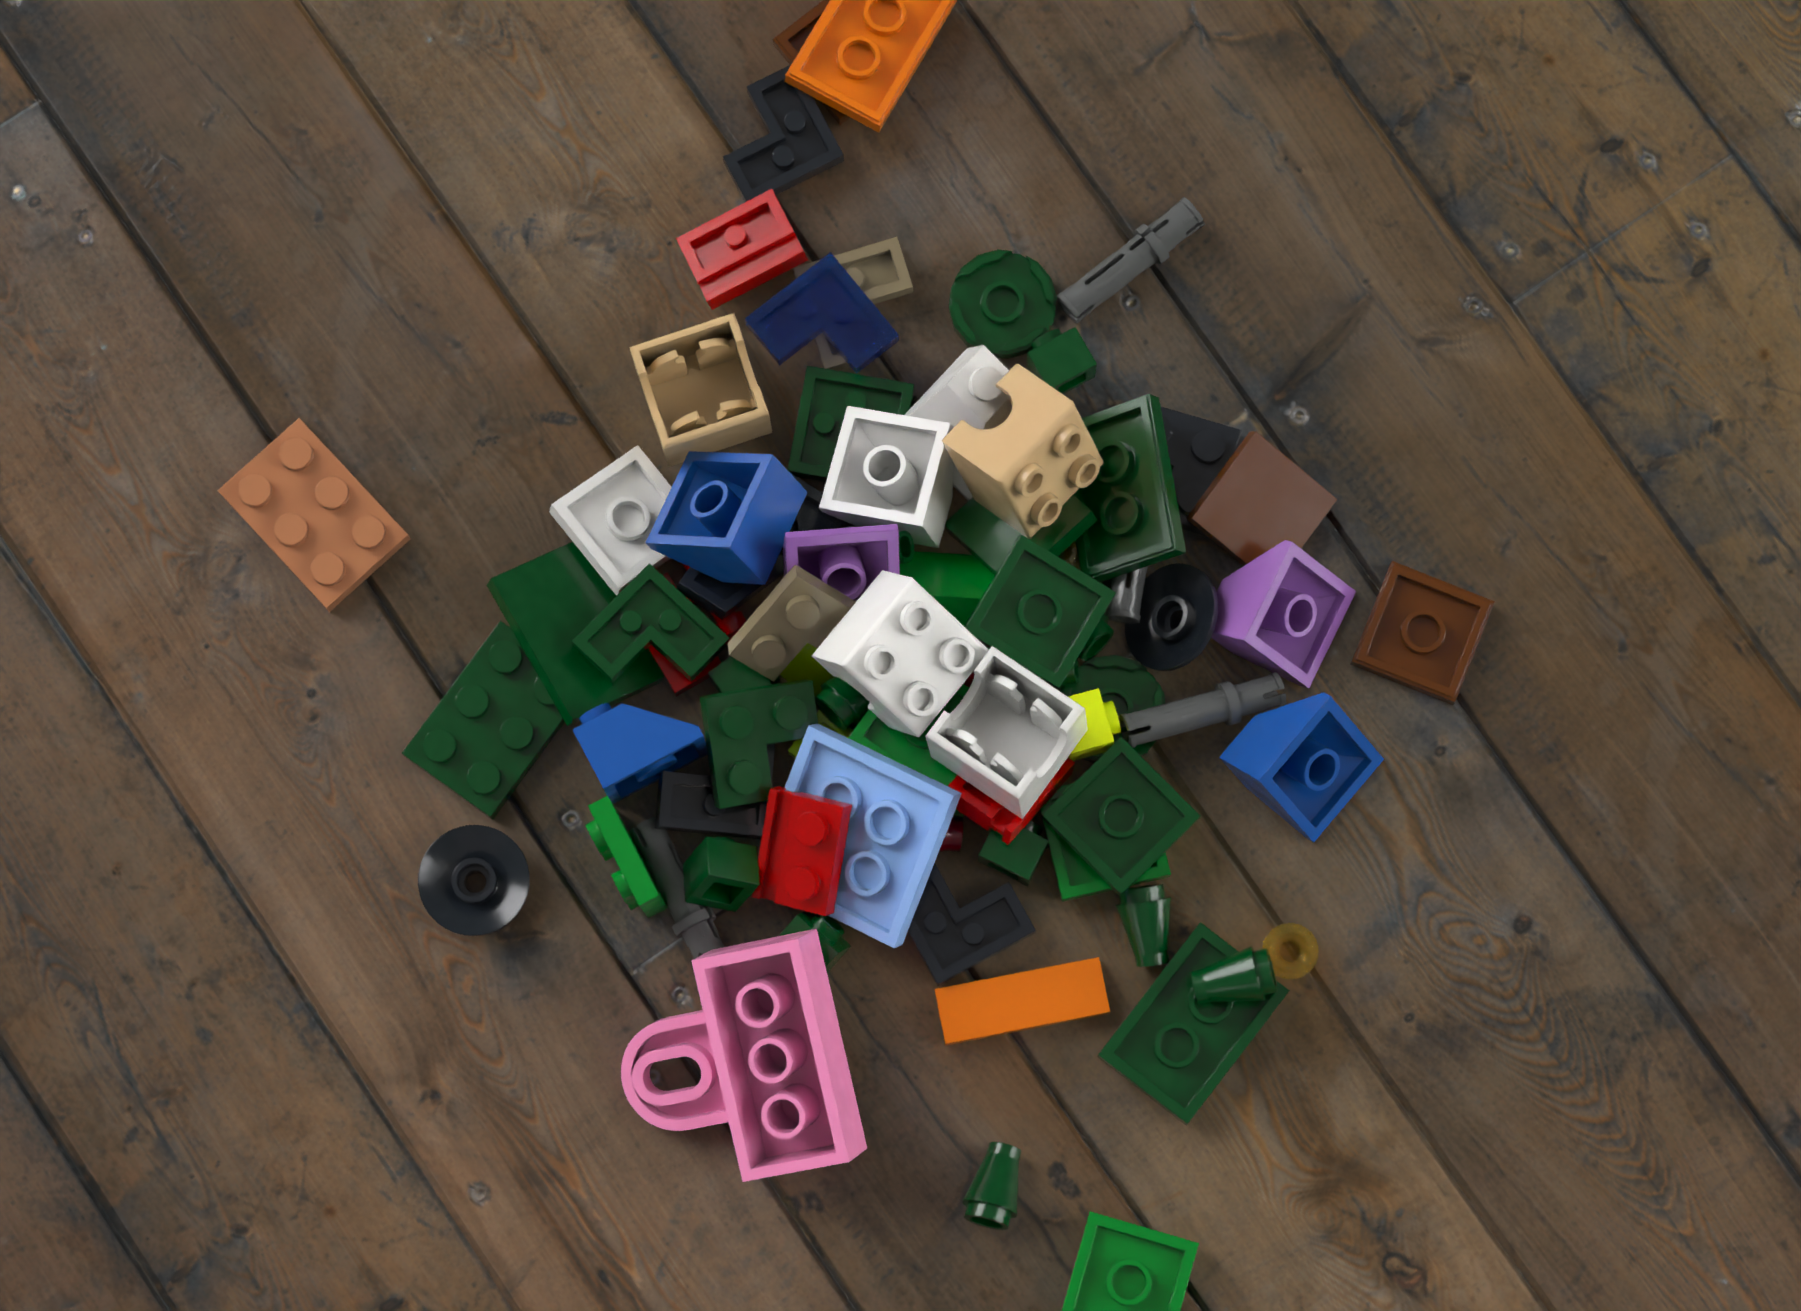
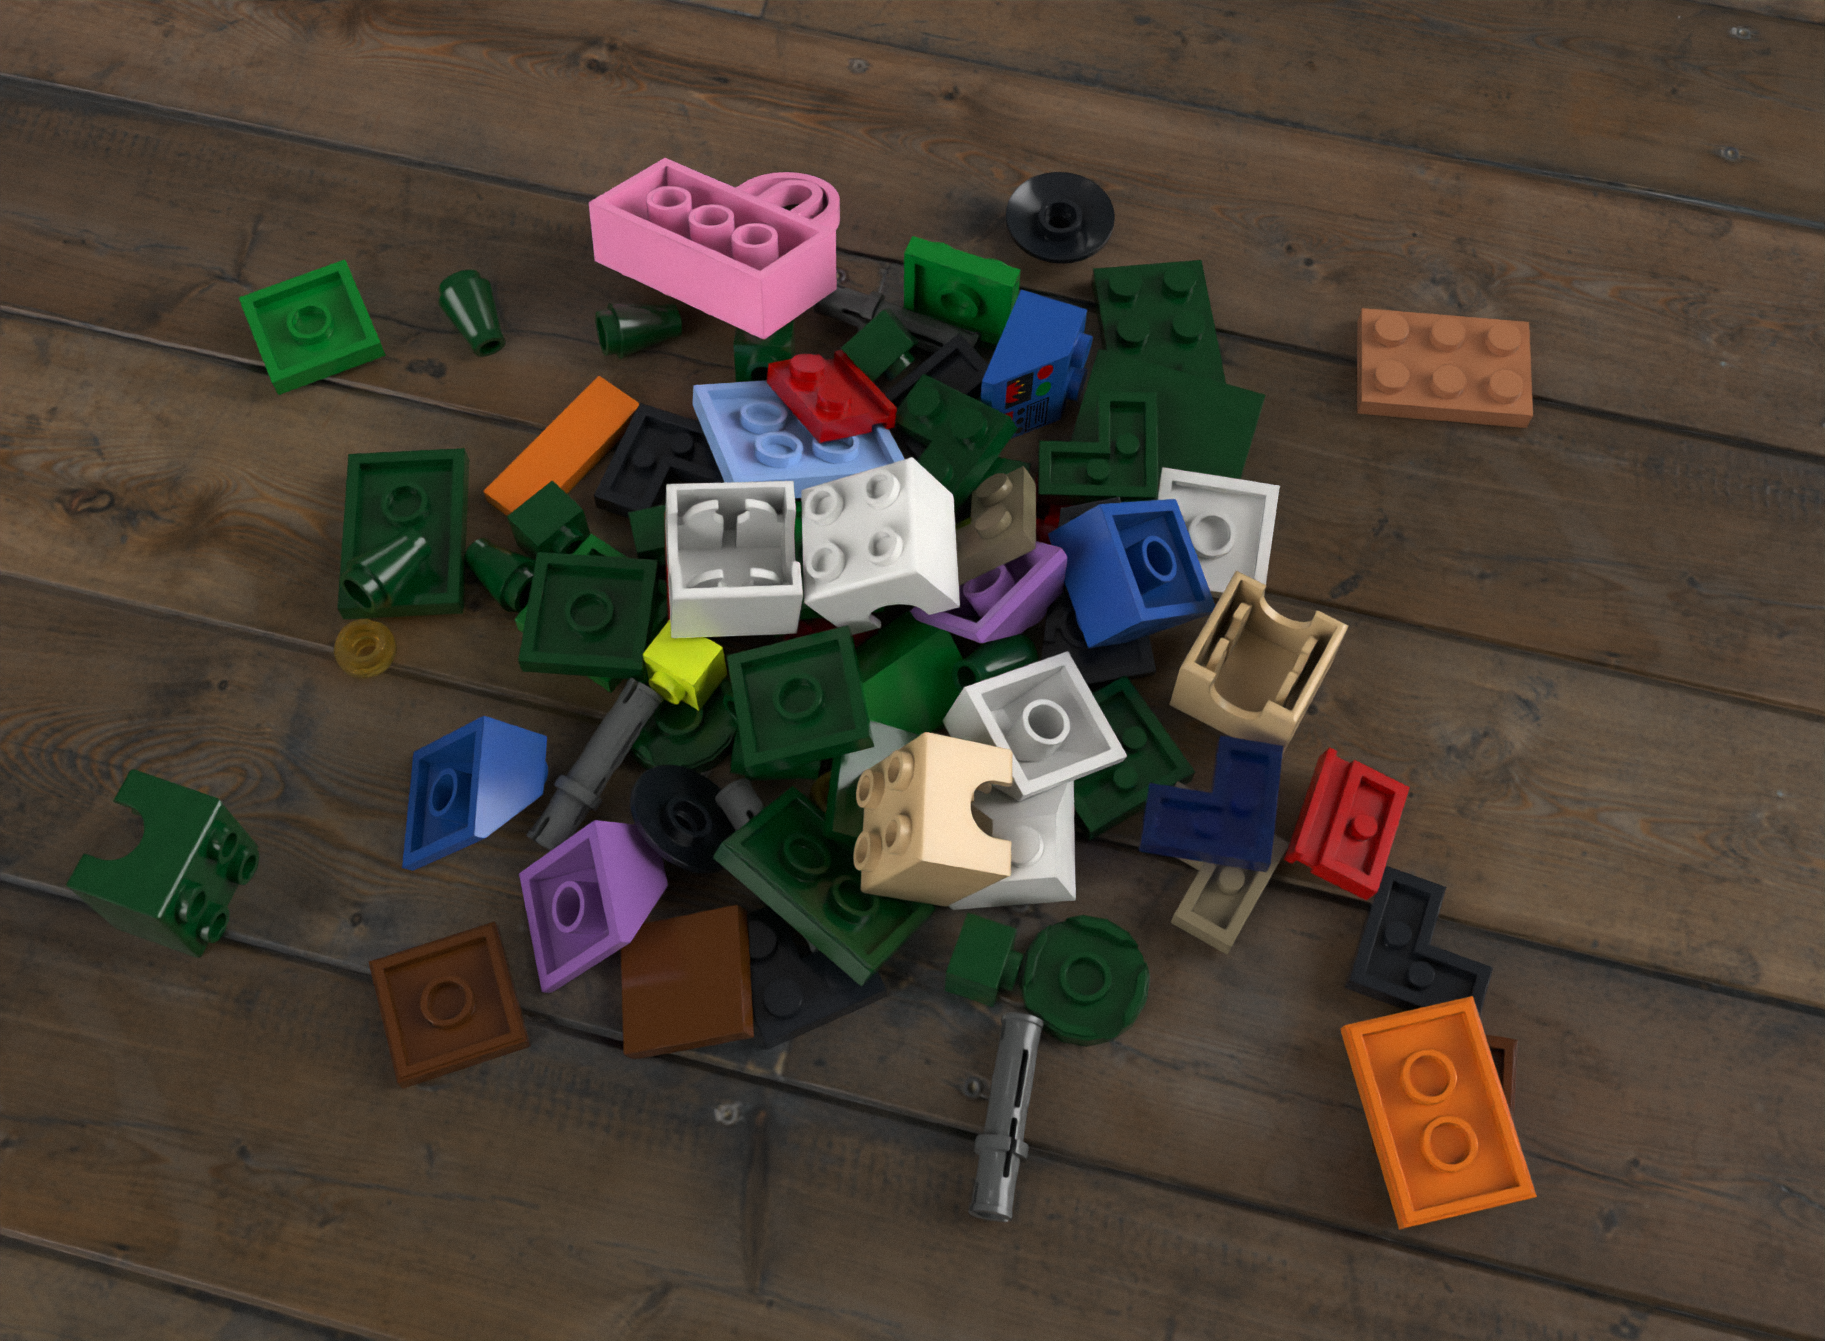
camera: 135 degrees right, 15 degrees down
(884, 1064) = (633, 327): none -> dark green cone
(1086, 930) = (549, 523): none -> dark green plate
(1554, 839) = (178, 875): none -> dark green piece

